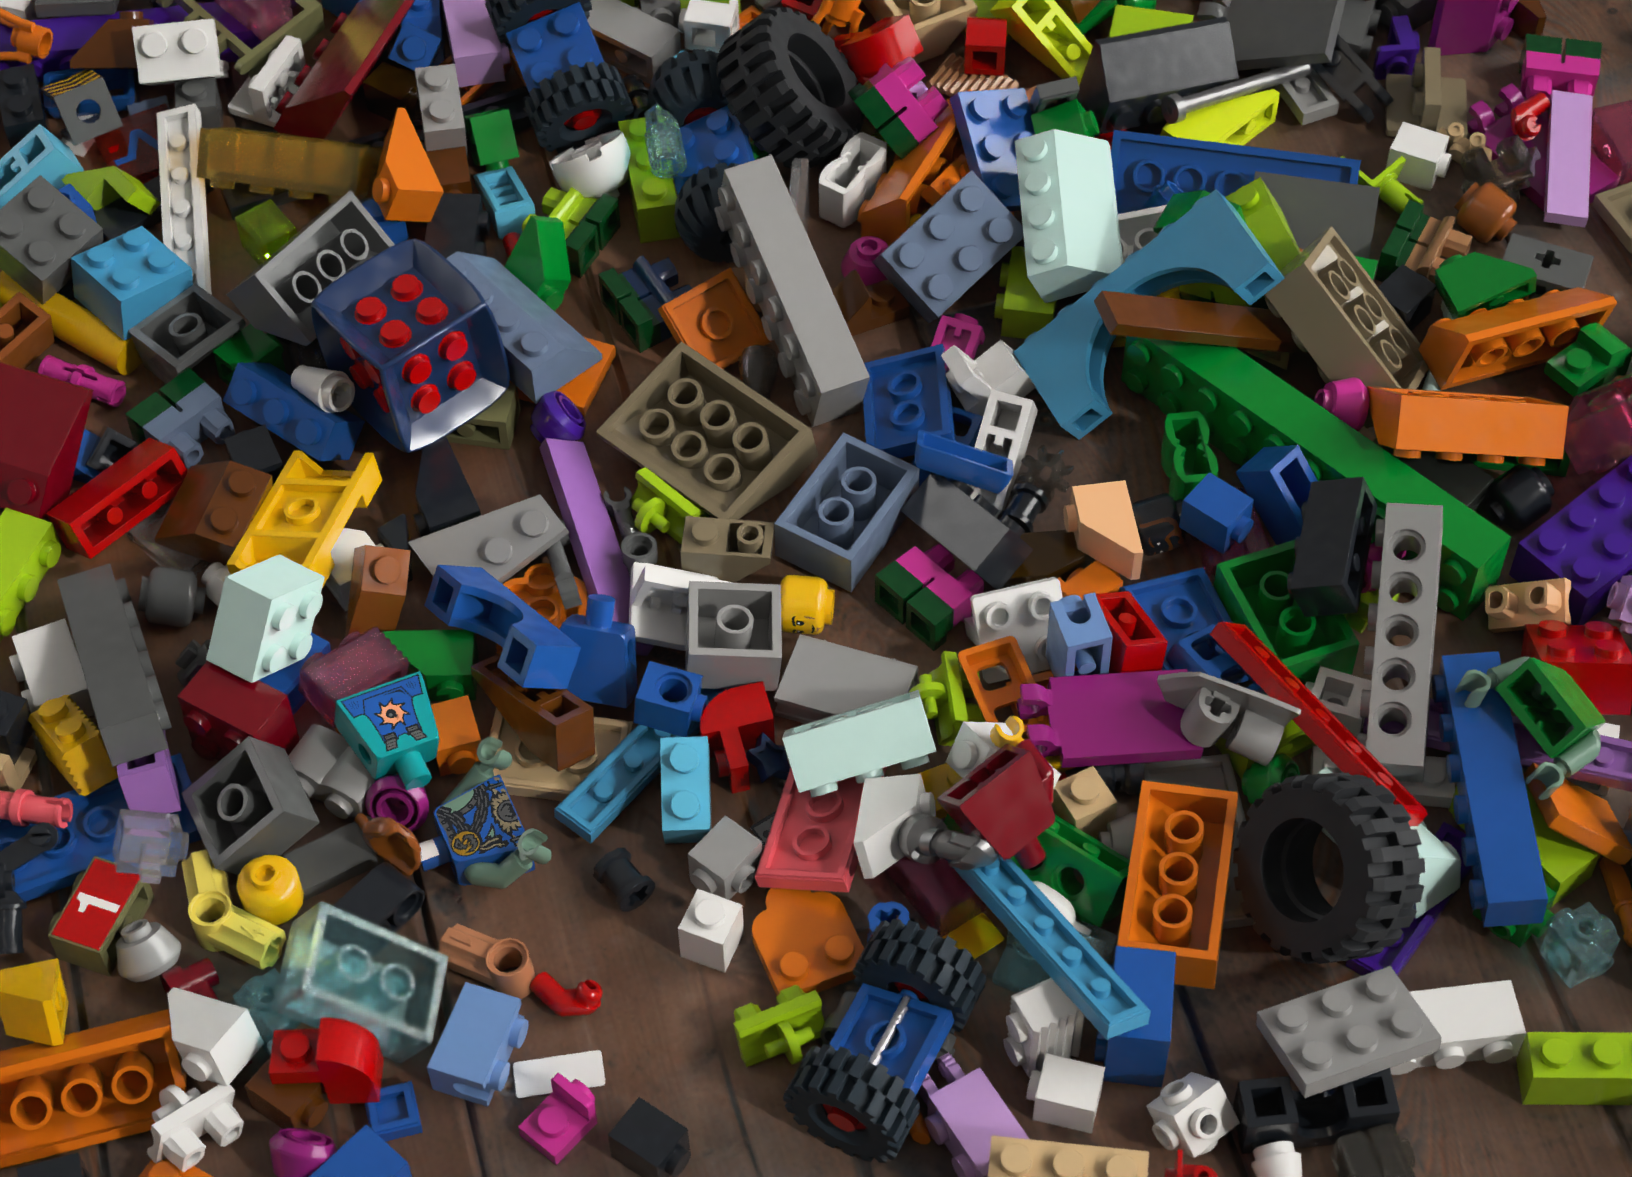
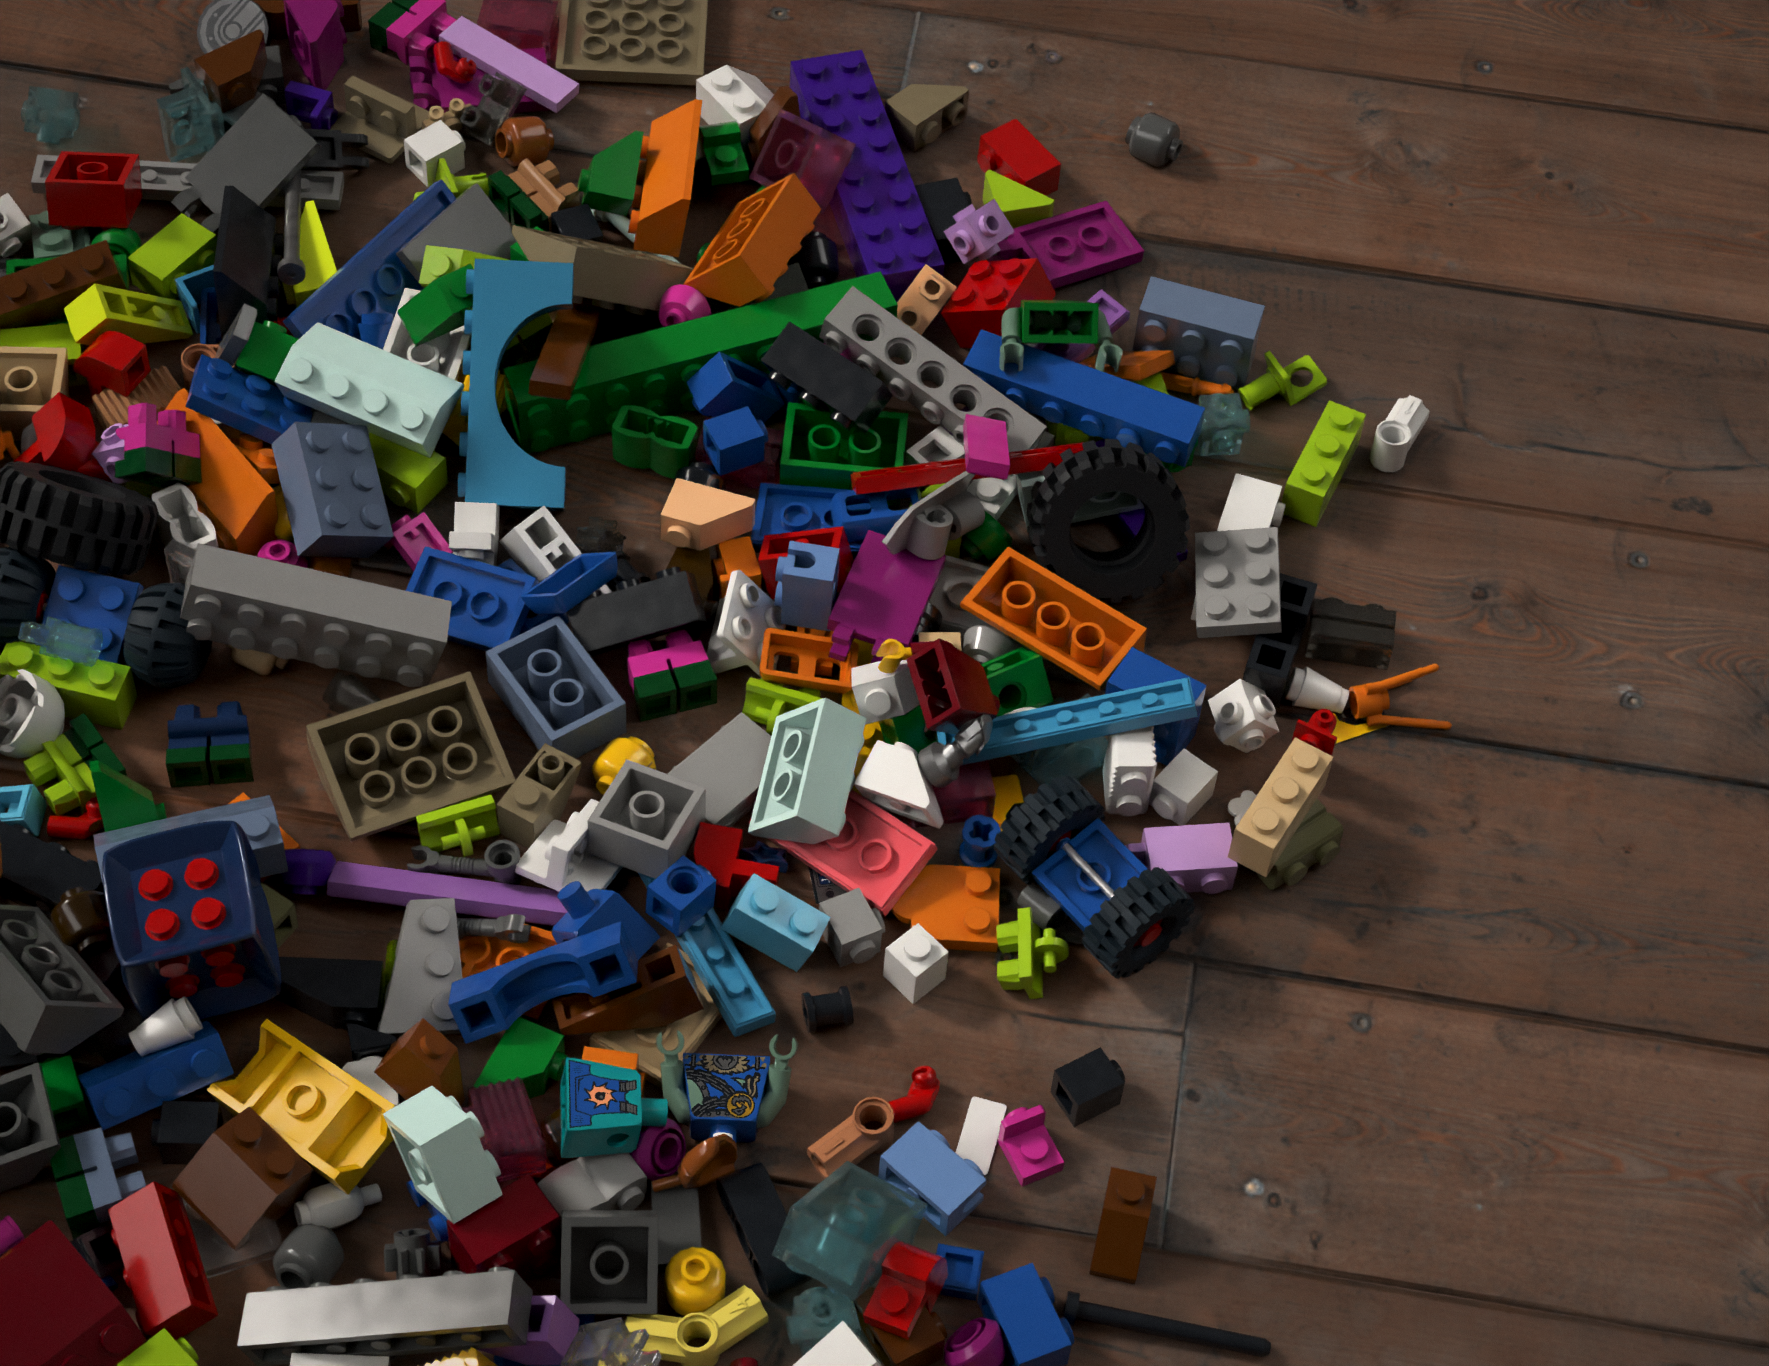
camera: 70 degrees left, 0 degrees up
(715, 319) = (277, 700): orange tile -> none
(1326, 706) = (986, 447): none -> dark pink tile
(1553, 265) = (605, 130): dark grey brick -> none

